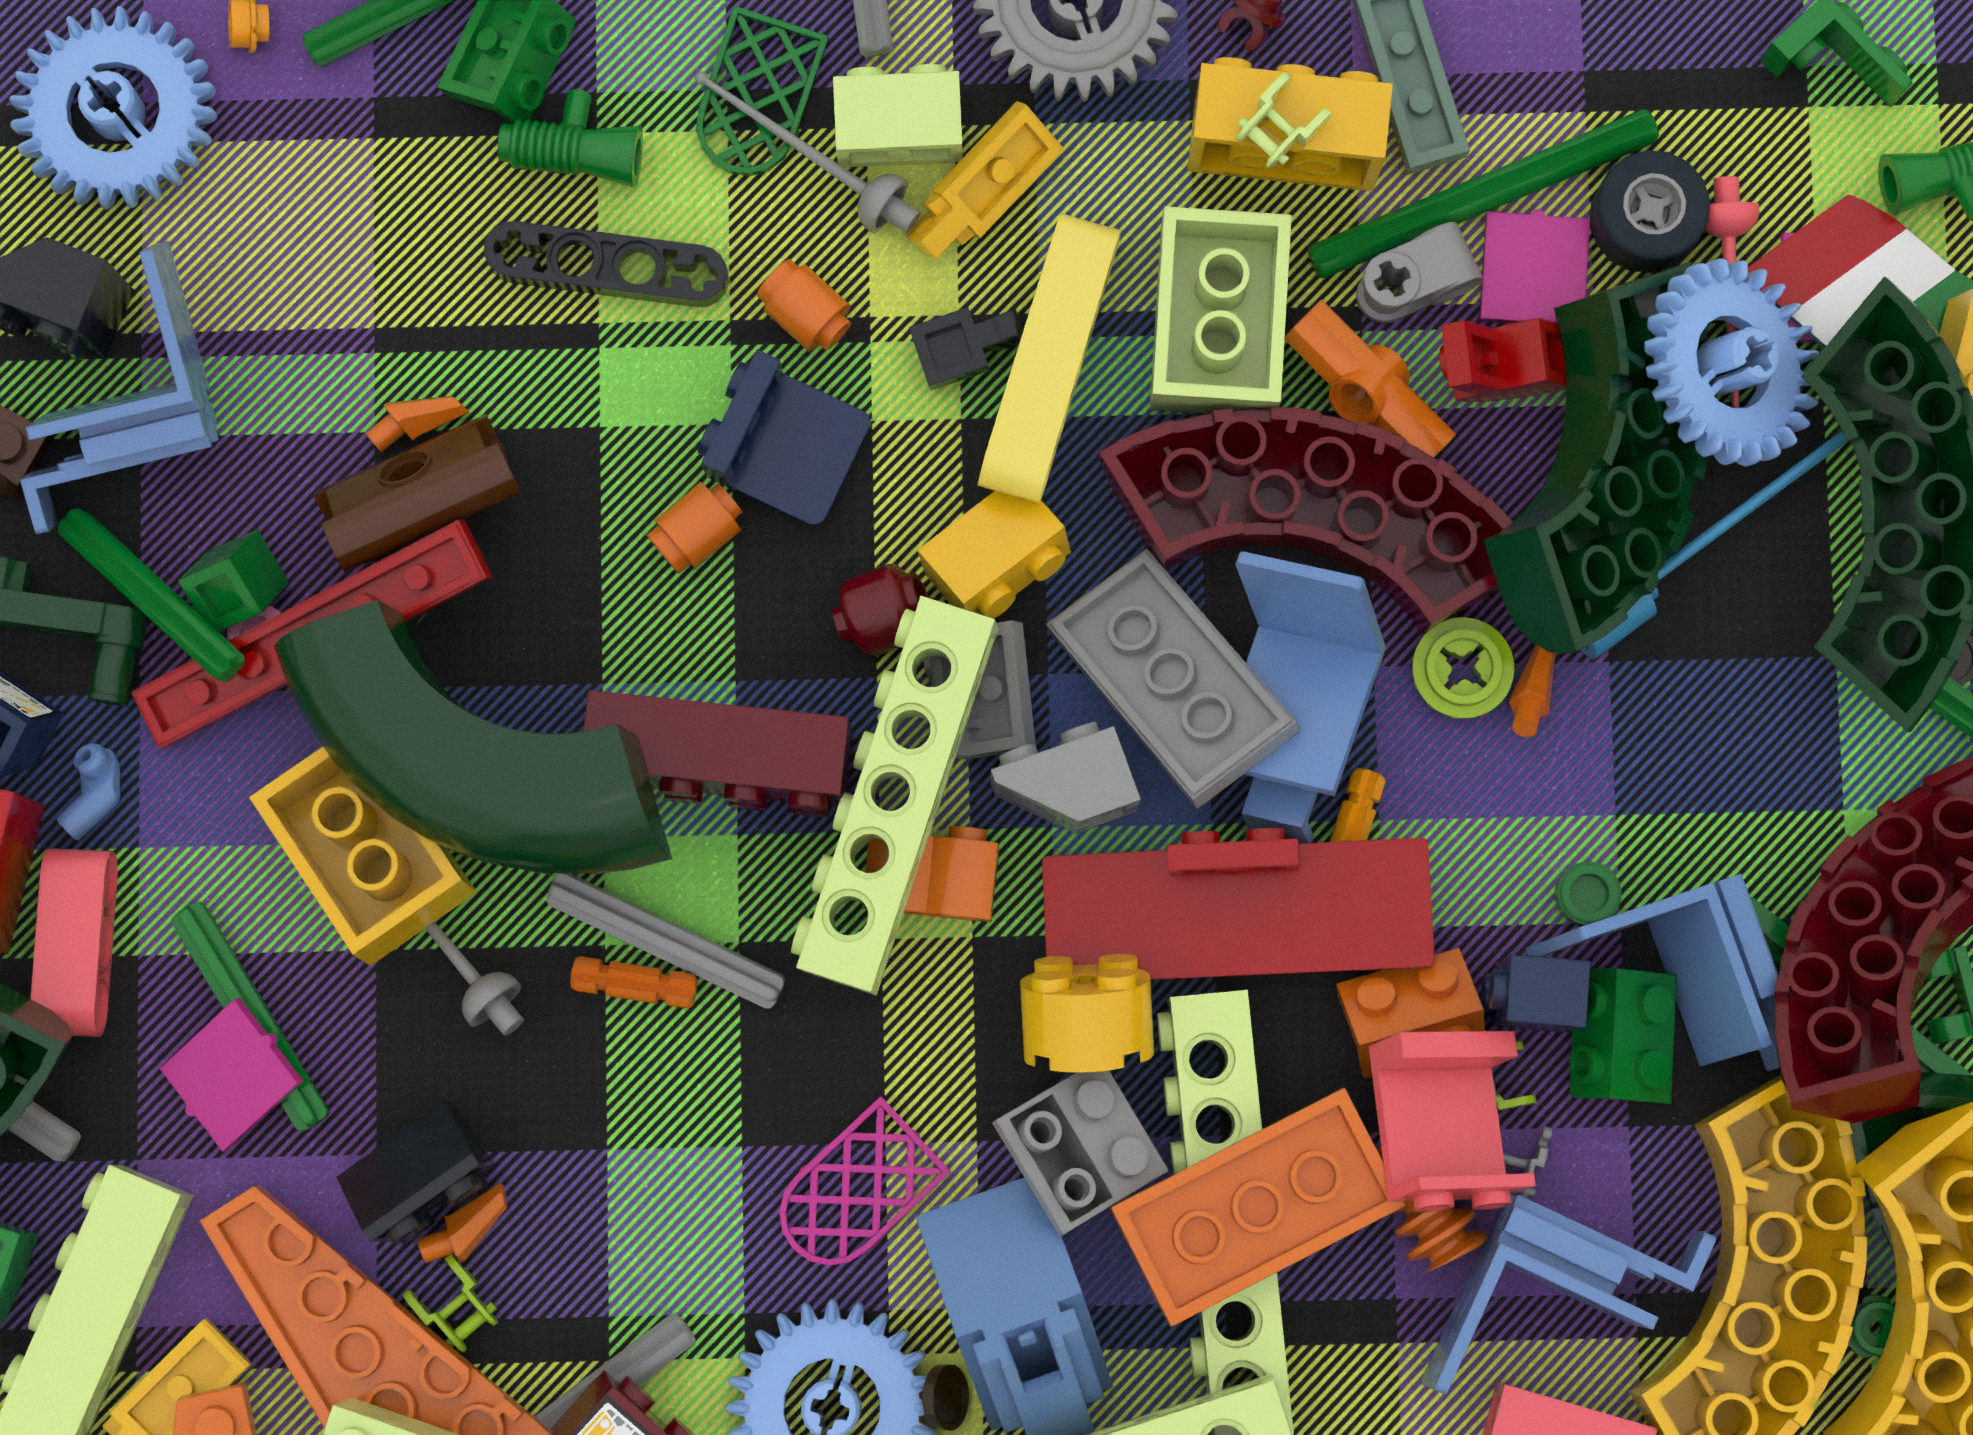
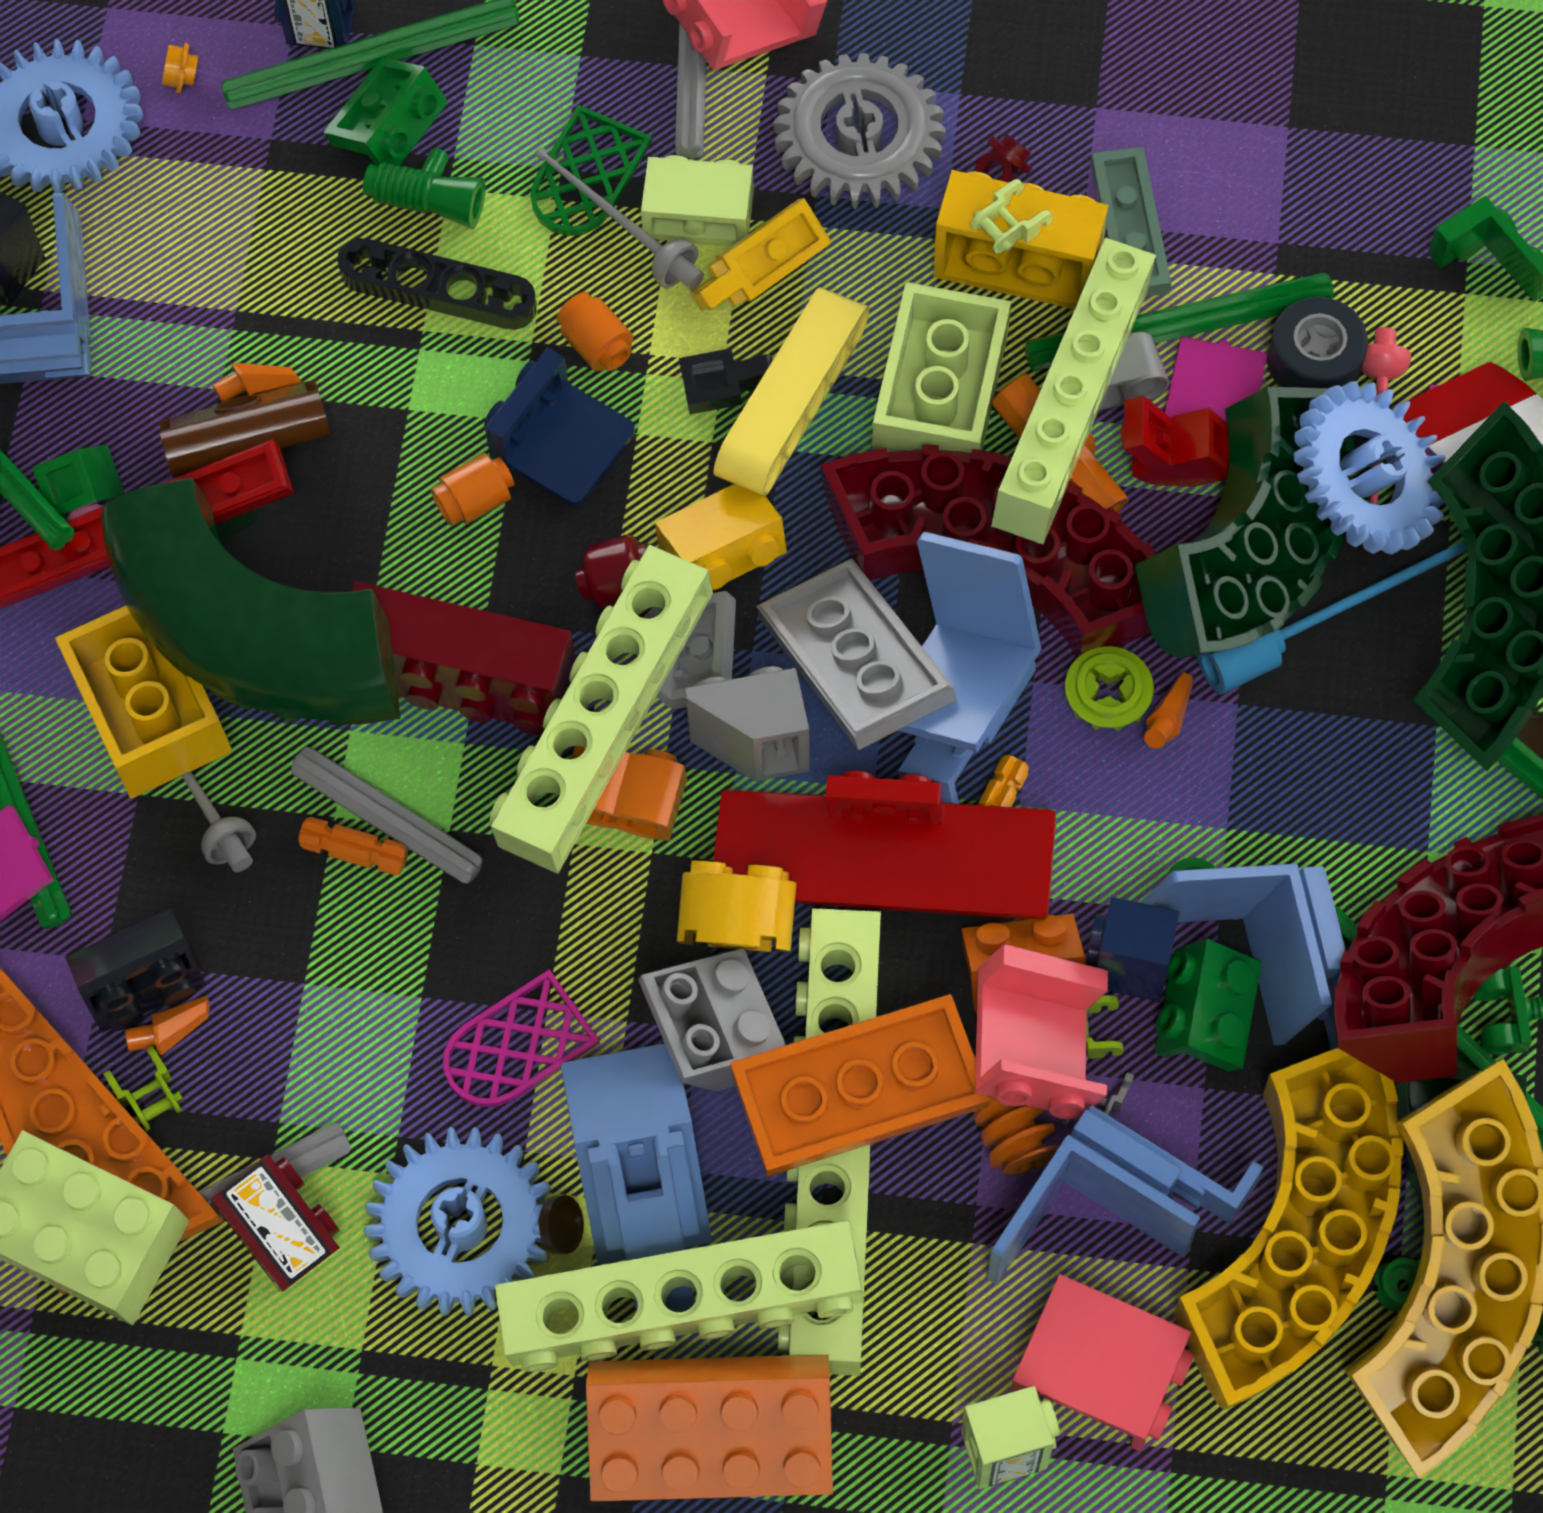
camera: 10 degrees right, 15 degrees down
(1383, 326) = (1073, 391): none -> yellowish green brick

